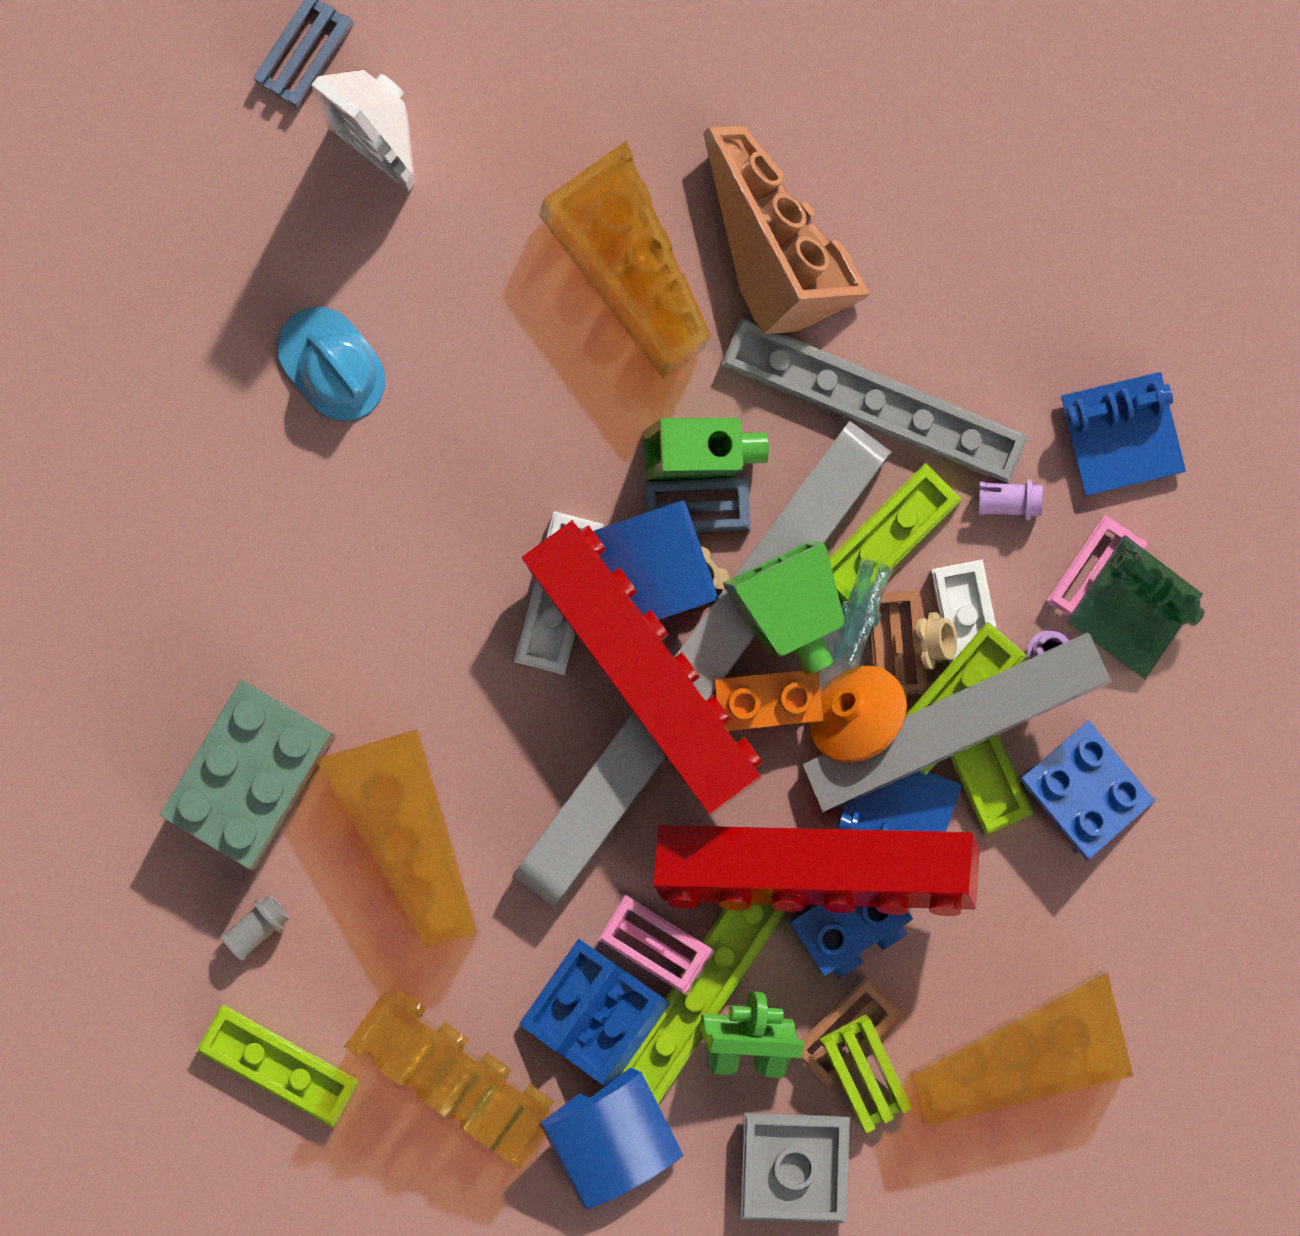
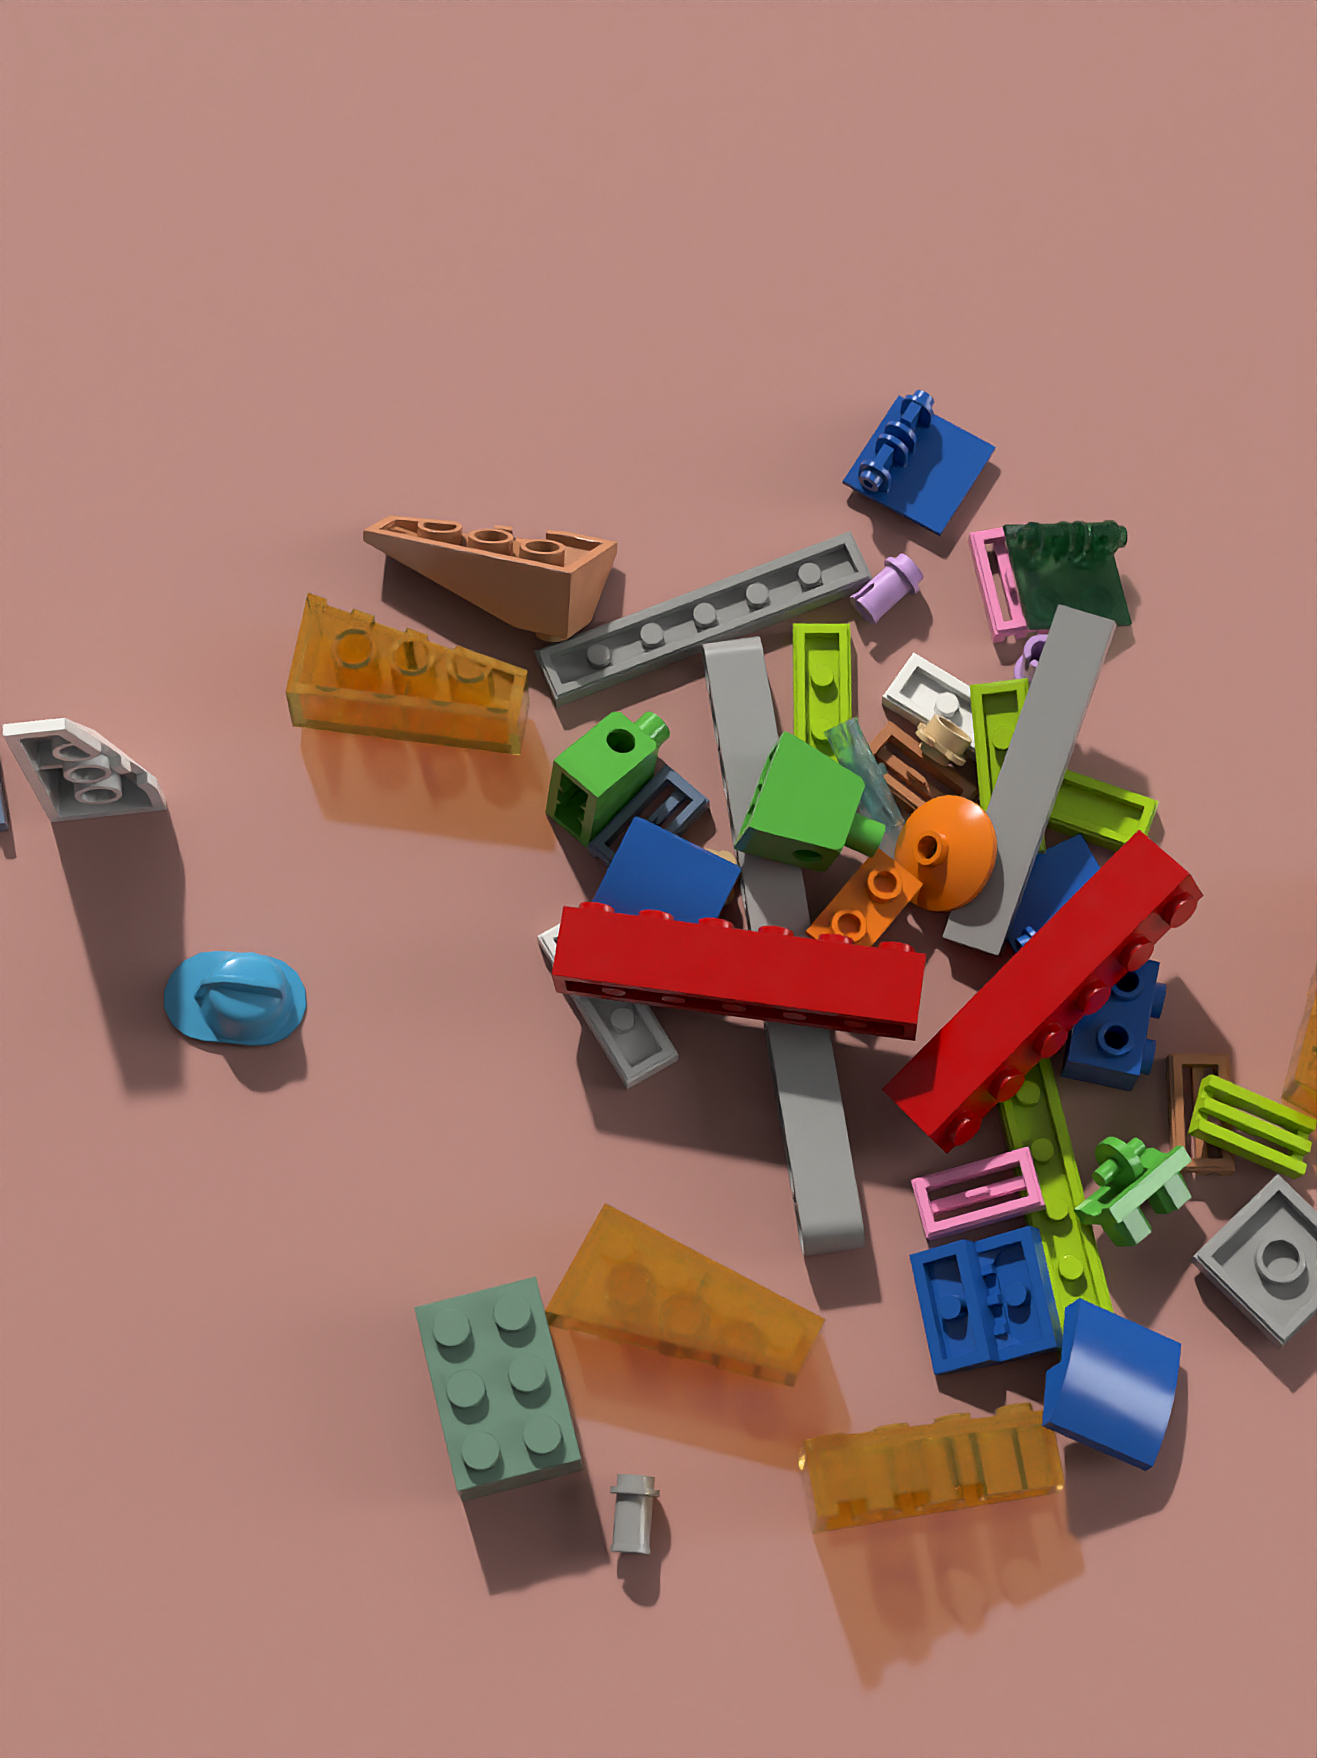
camera: 40 degrees left, 15 degrees down
(278, 1065) = (770, 1616): lime tile -> none
(1086, 790) = (1180, 745): hinge -> none

